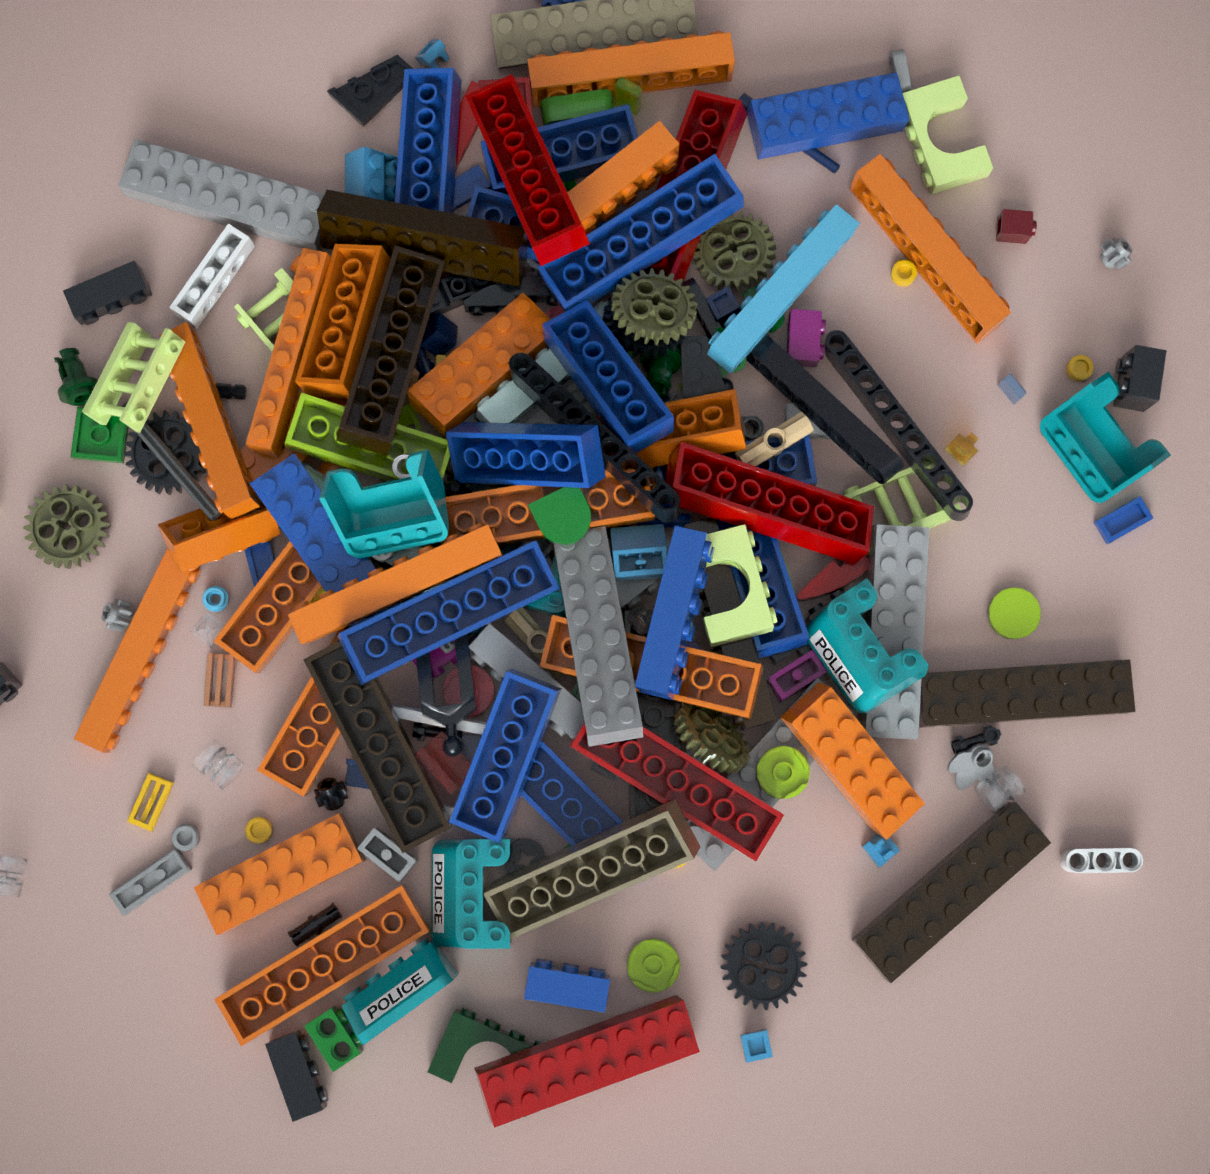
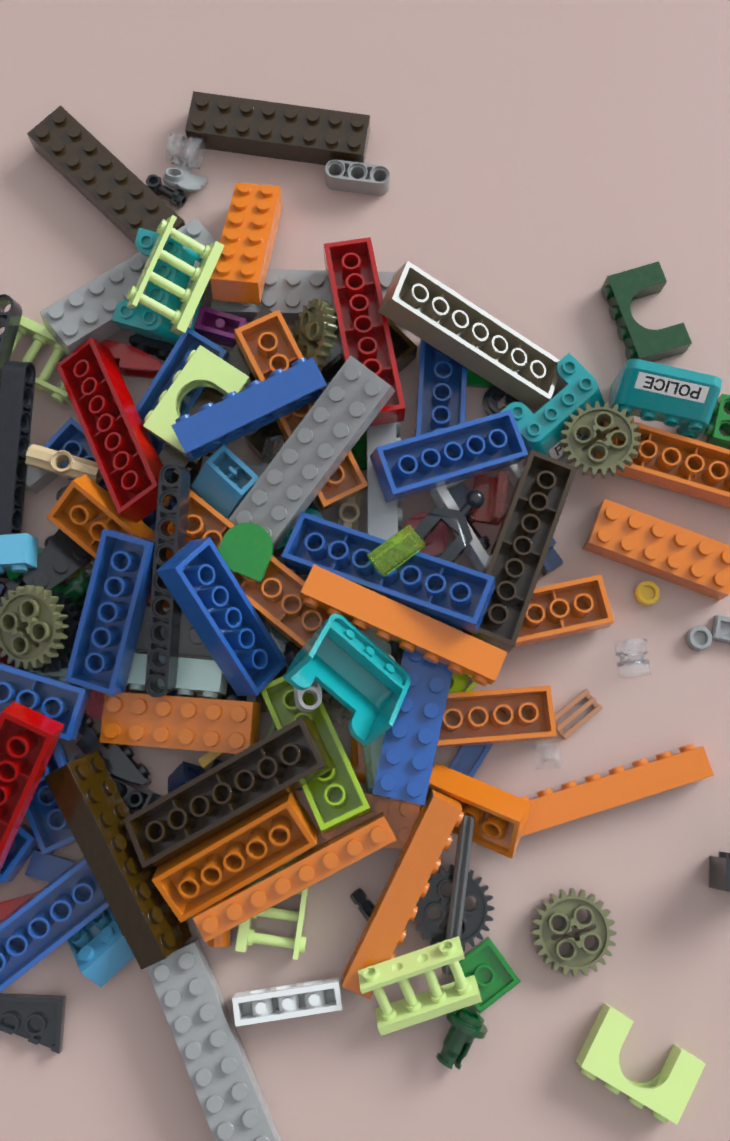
camera: 130 degrees left, 5 degrees down
(107, 293) = (372, 1076): black brick -> none
(117, 615) = (600, 829): light grey gear -> none
(159, 807) = (680, 691): yellow tile -> none
(207, 598) = (531, 770): medium azure plate -> none
(314, 924) = (670, 499): black pin -> none
(331, 794) = (579, 563): black gear -> none
(387, 854) = (583, 494): light grey brick -> none
(434, 903) = (613, 456): none -> olive gear
(455, 628) = (396, 550): none -> clear neon green tile
(567, 985) = (556, 302): blue brick -> none
(586, 1060) = (591, 251): red brick -> none
(653, 965) = (491, 270): lime tile -> none
(756, 1045) = (482, 166): dark azure tile -> none
(757, 989) = (446, 194): black gear -> none
(783, 772) = (295, 278): lime tile -> none
(843, 681) = (198, 275): none -> yellowish green fence
(856, 918) = (347, 182): none -> light grey beam
(880, 849) = (291, 194): dark azure tile -> none
(1014, 613) = (57, 234): lime tile -> none
(1113, 857) = (178, 62): white beam -> none

